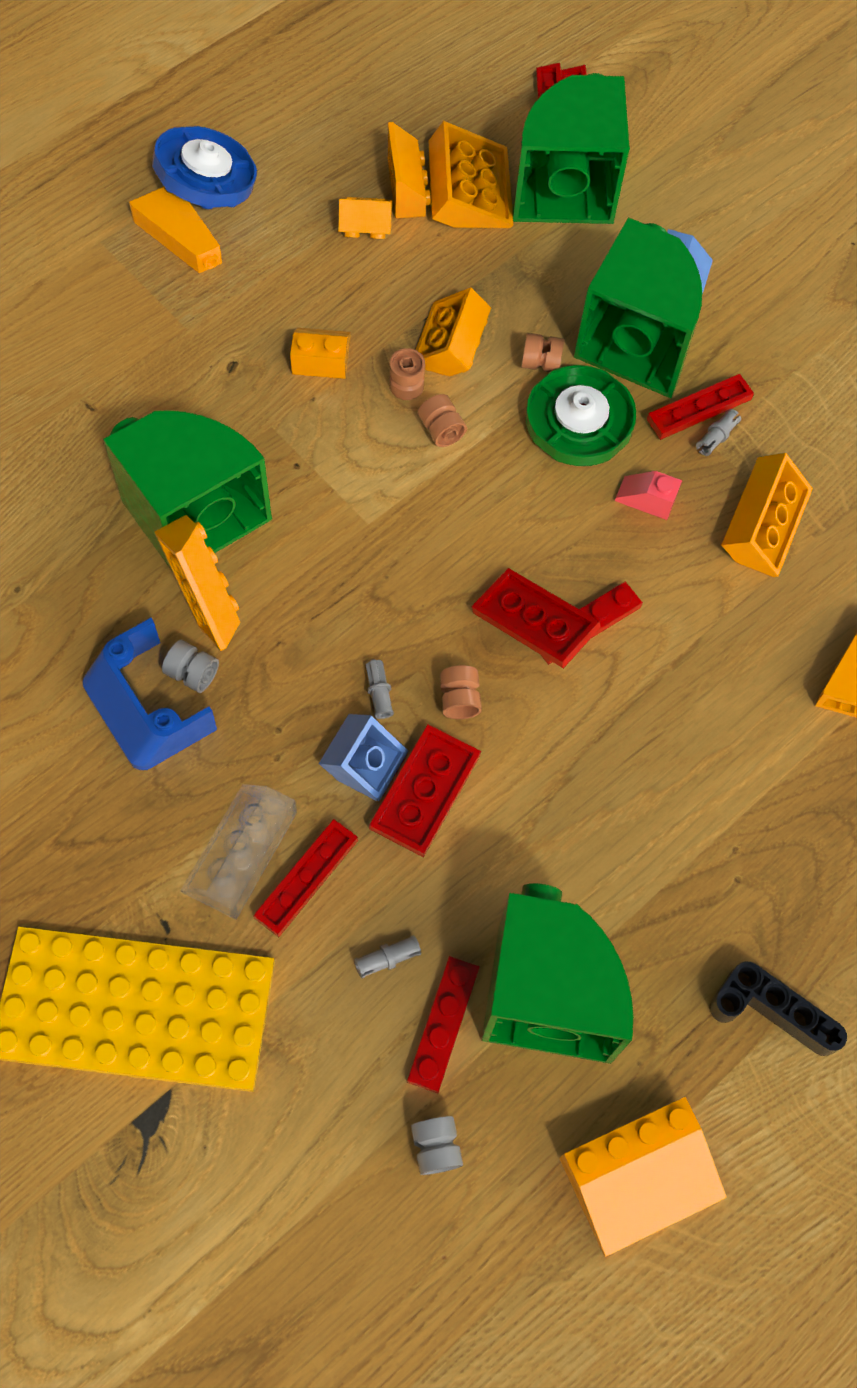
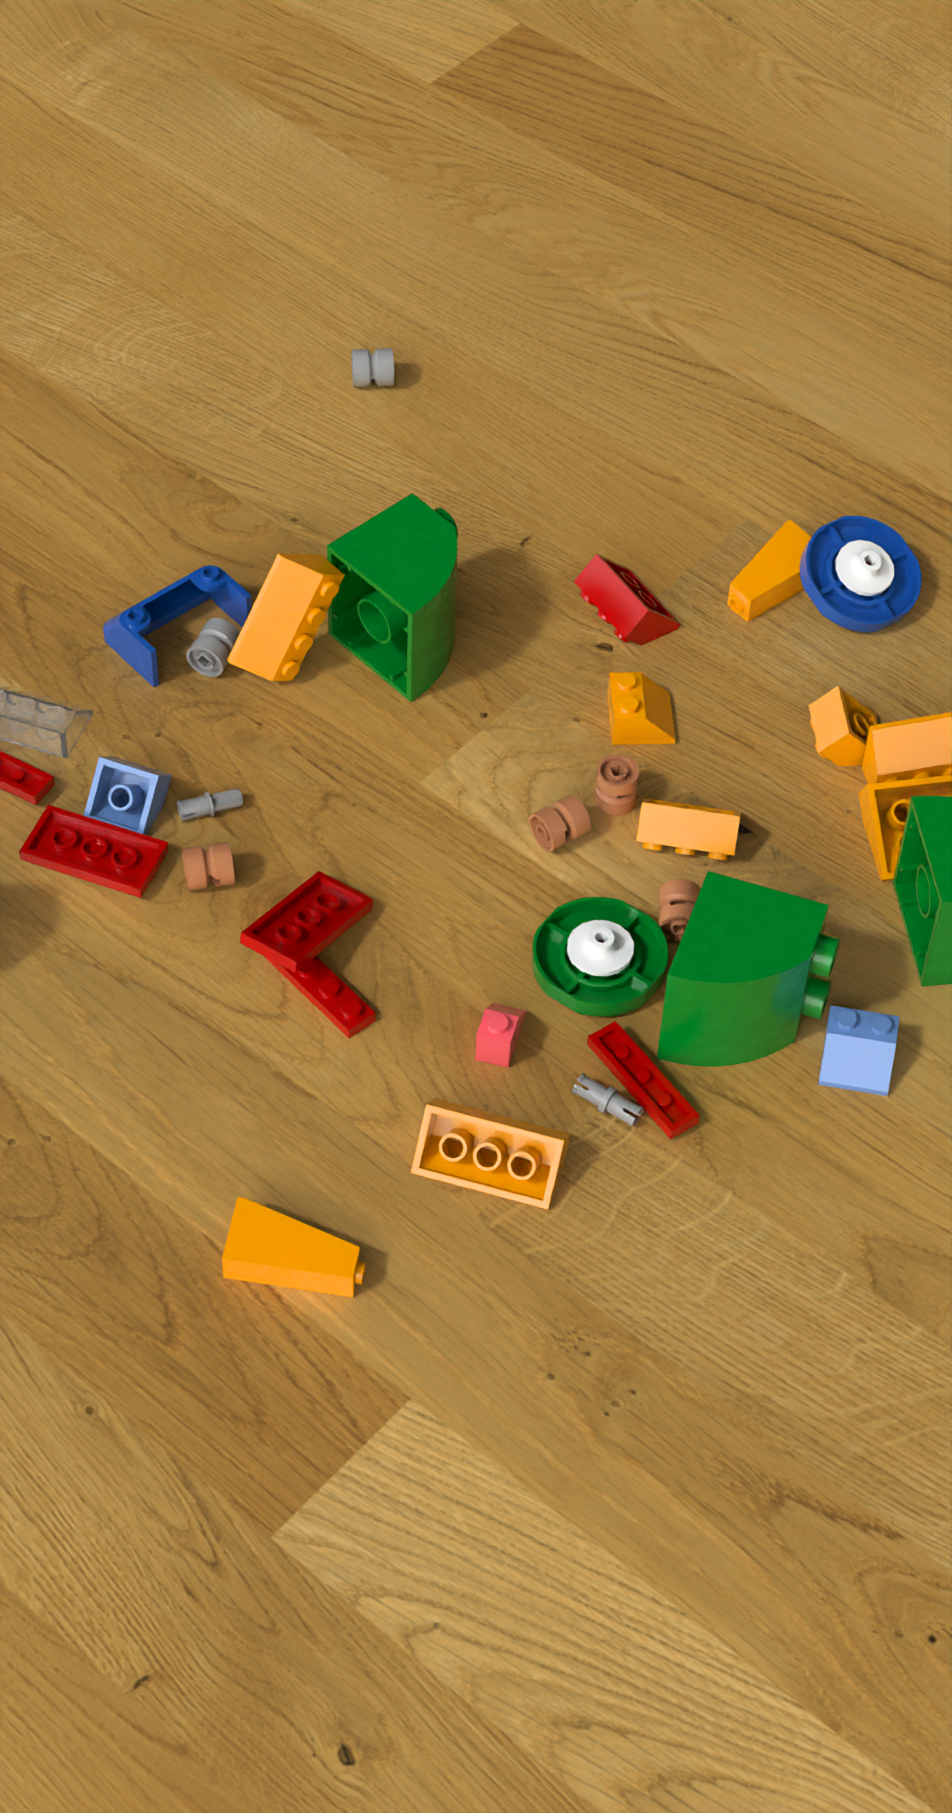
camera: 85 degrees right, 15 degrees down
(193, 339) = (624, 601): none -> red slope

